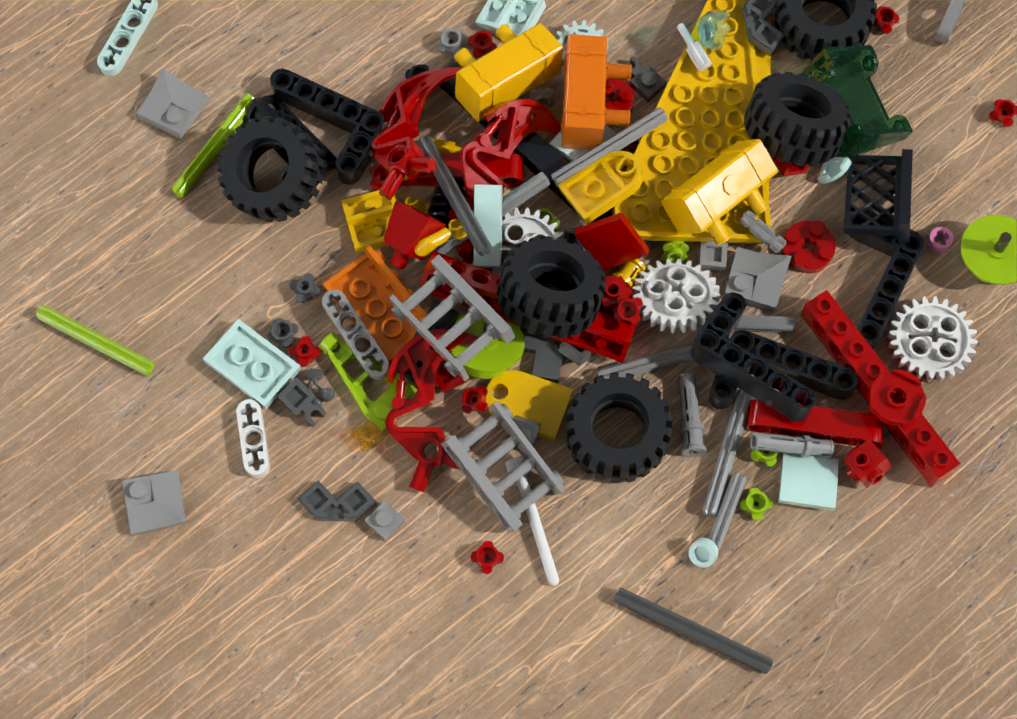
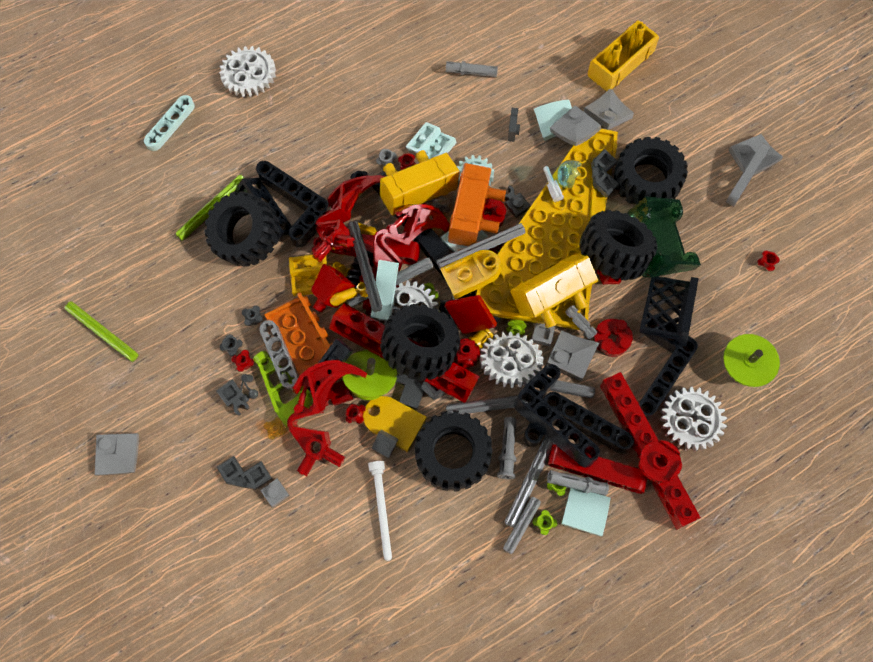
camera: 10 degrees right, 0 degrees up
(172, 105) = (188, 175): light grey plate -> none
(248, 459) = (188, 432): white beam -> none
(252, 363) = (204, 364): light aqua plate -> none
(460, 293) = (362, 353): light grey fence -> none
(476, 470) = (344, 467): light grey fence -> none
(487, 549) = (344, 525): red plate -> none
(635, 305) = (475, 370): red plate -> none
(693, 630) = (483, 612): dark grey axle -> none
(703, 552) = (500, 553): light aqua tile -> none
(833, 169) = (639, 284): light aqua tile -> none
(866, 464) = (630, 506): red brick -> none
(888, 14) = (692, 178): red plate -> none
(936, 247) = (712, 341): bright pink bush -> none

